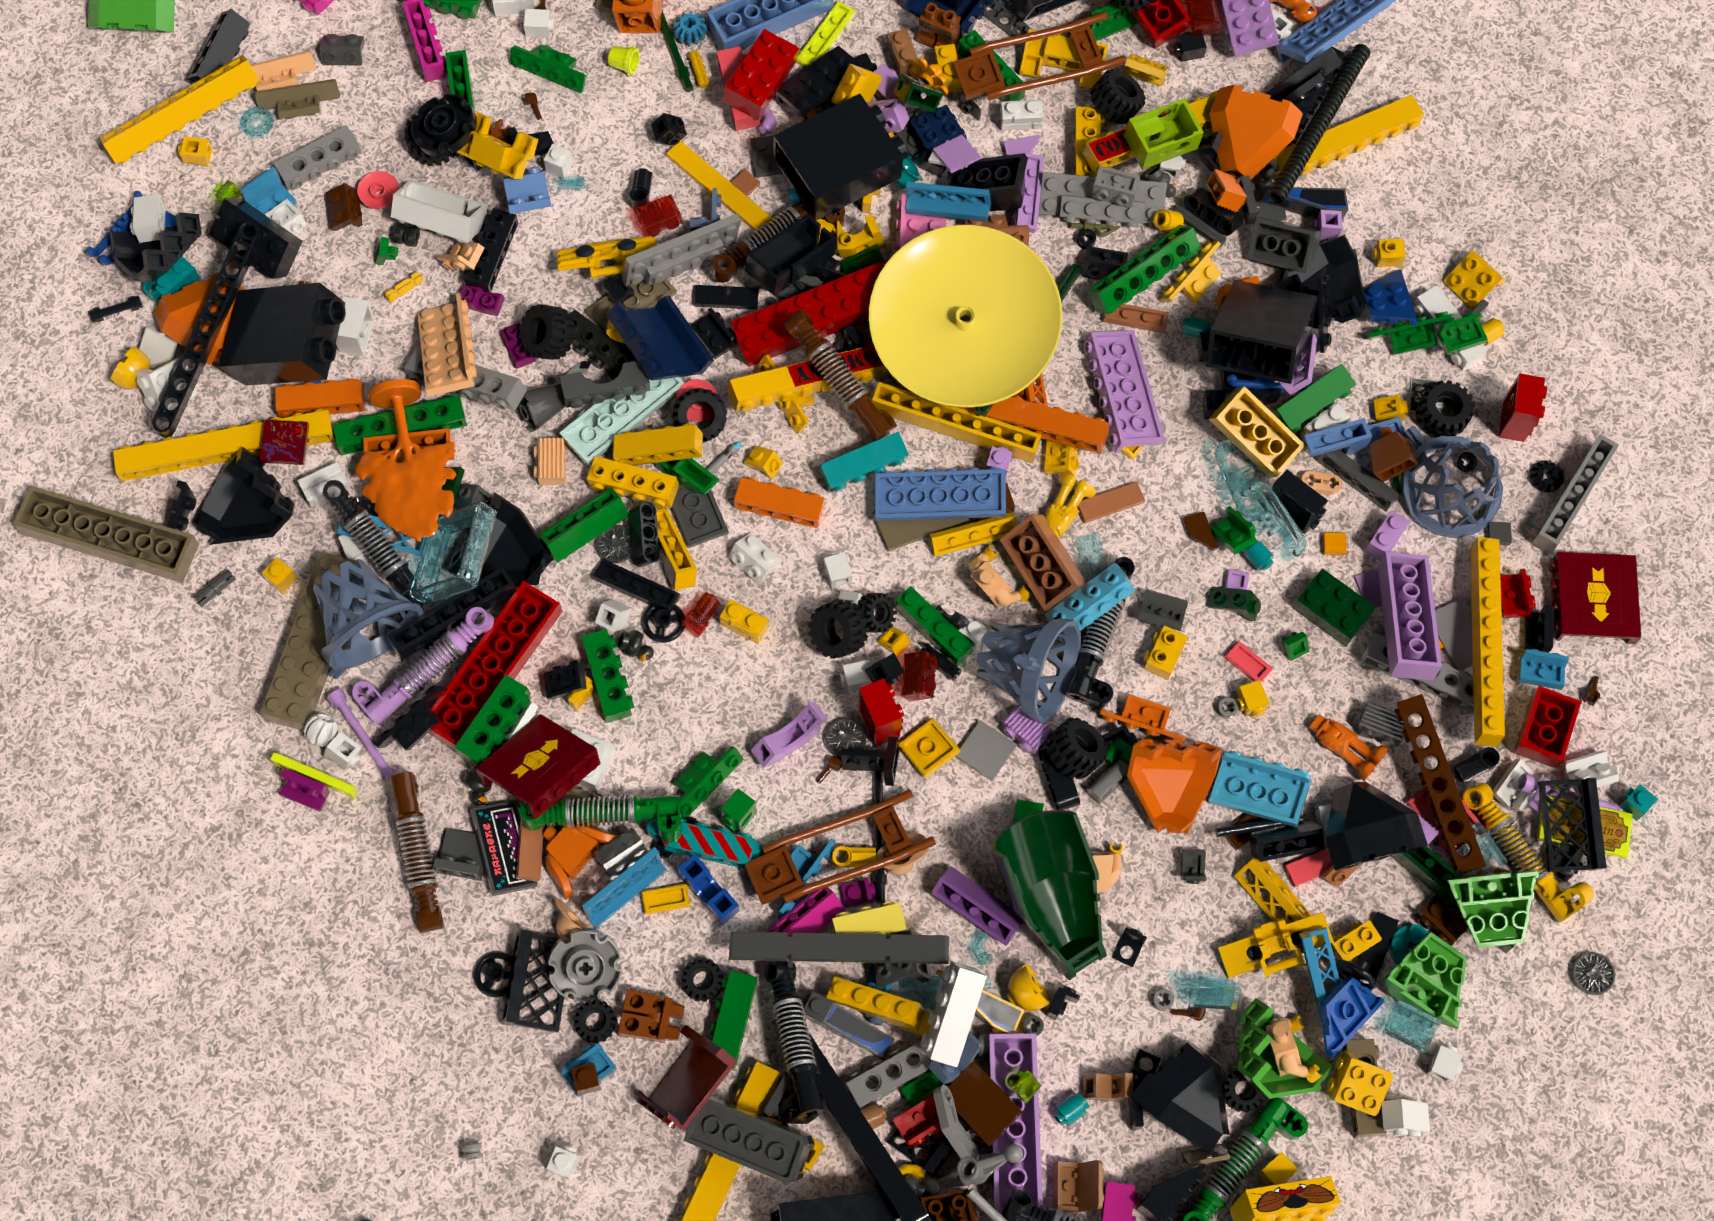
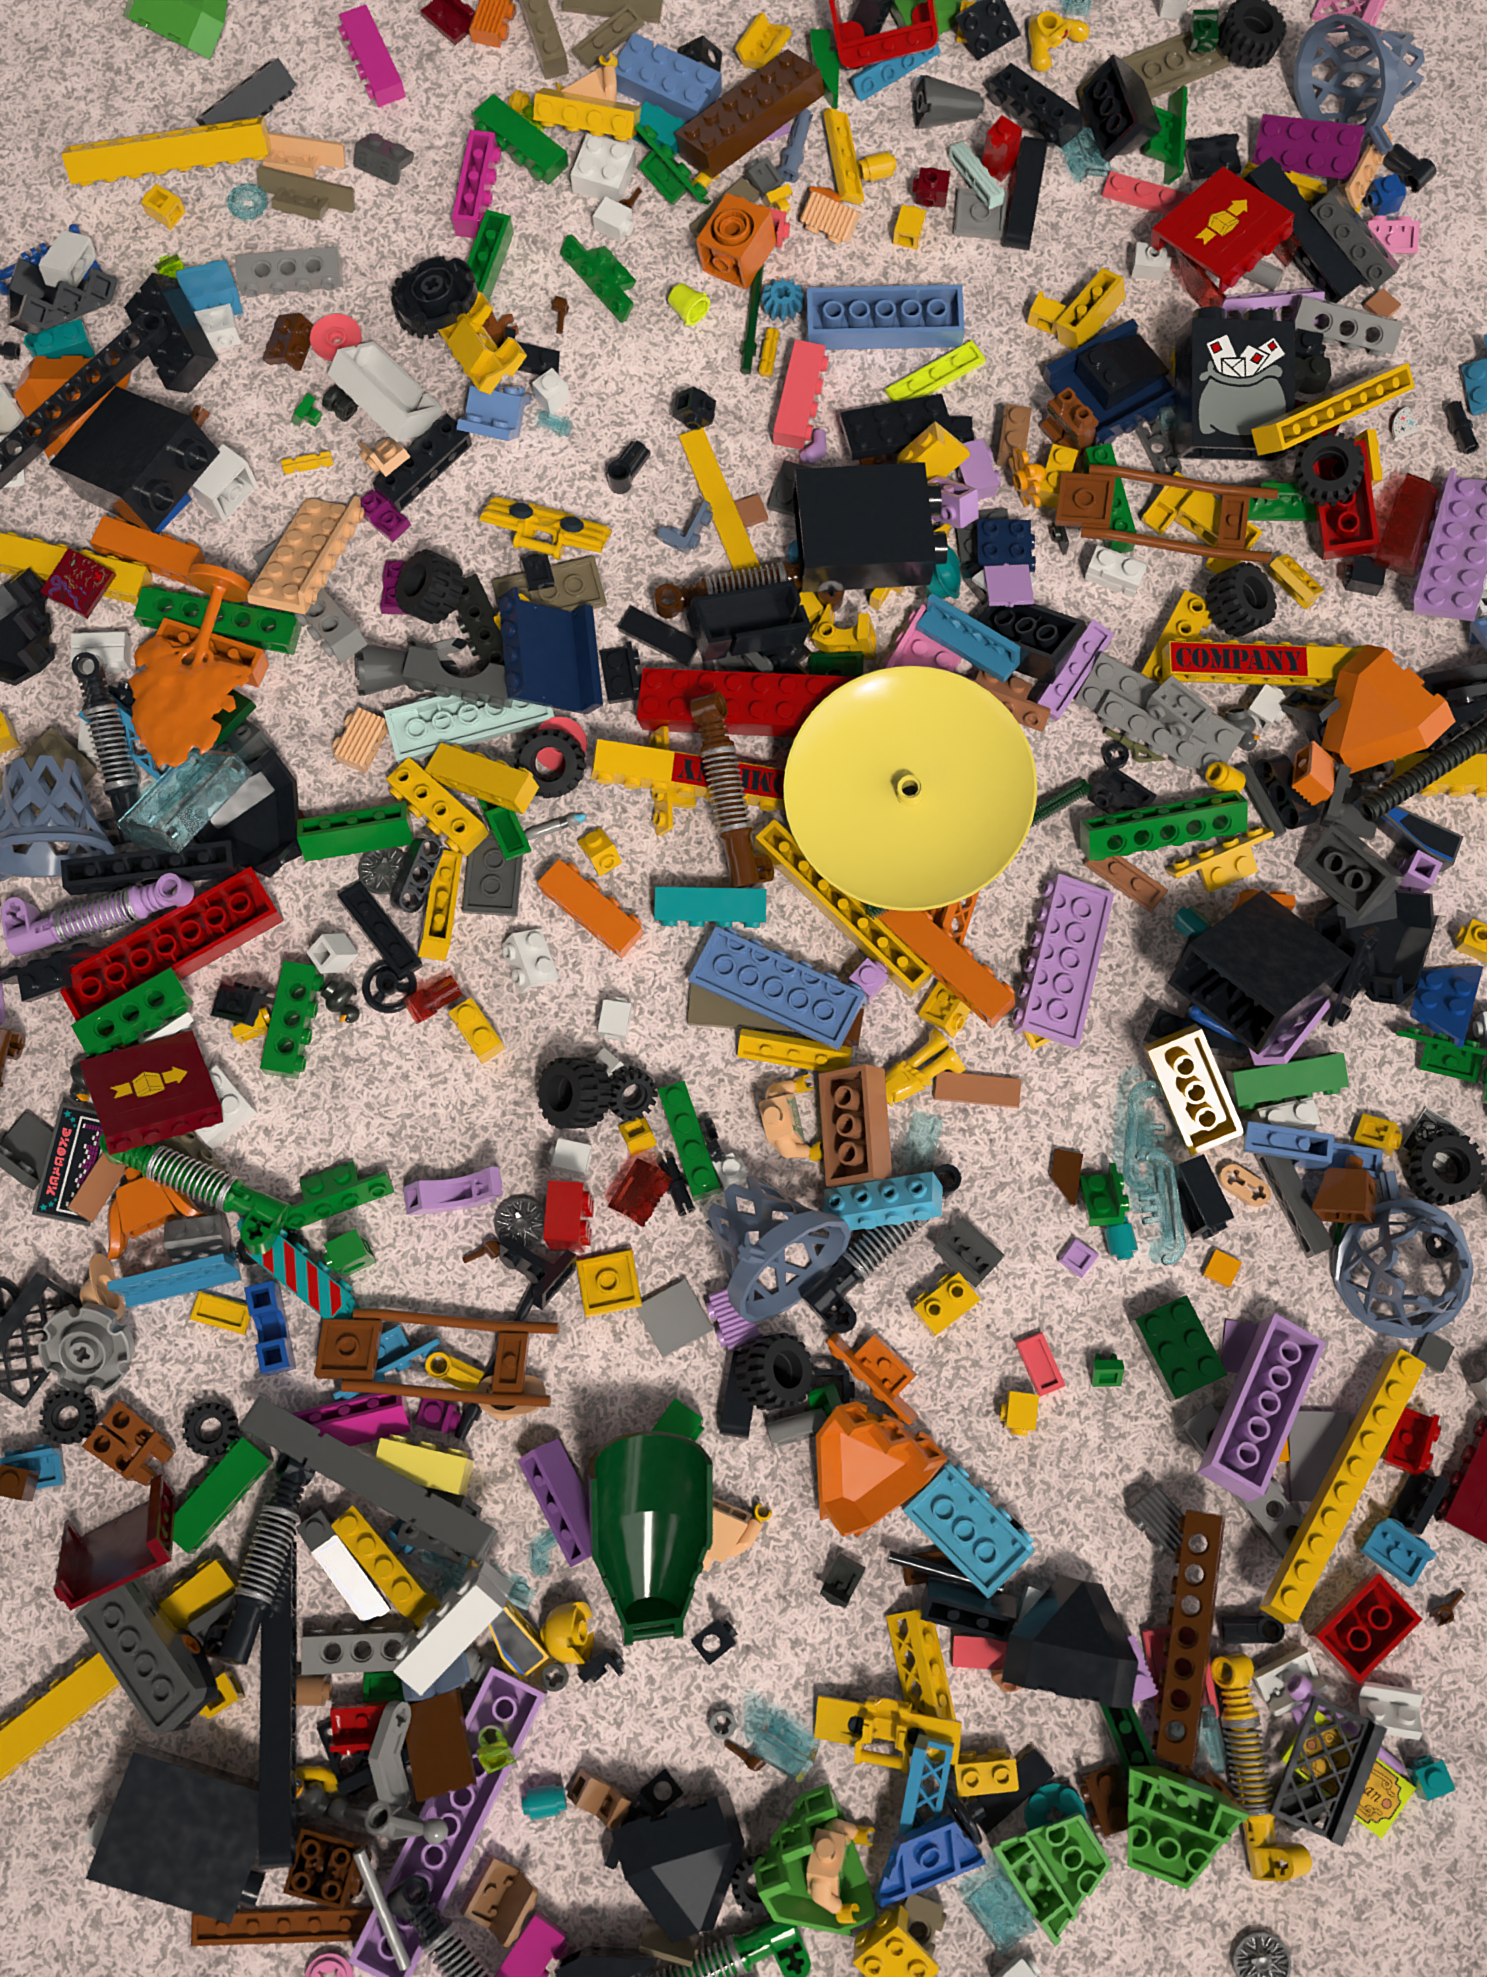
camera: 30 degrees right, 5 degrees up
(657, 216) = (629, 506): clear red brick -> none
(681, 253) = (628, 561): light grey plate -> none
(761, 74) = (829, 389): red brick -> none
(851, 340) = (769, 756): black bracket -> none
(885, 668) = (602, 1169): black brick -> none
(910, 90) = (991, 487): dark green torso -> none
(1021, 145) = (1096, 608): lavender tile -> none
(1165, 137) = (1266, 676): lime piece -> none
(1227, 715) = (989, 1399): light grey bush -> none
(1235, 599) = (1062, 1282): dark green bracket -> none
(1338, 738) = (1099, 1511): orange piece -> none
(1387, 535) = (1290, 1291): lavender brick -> none

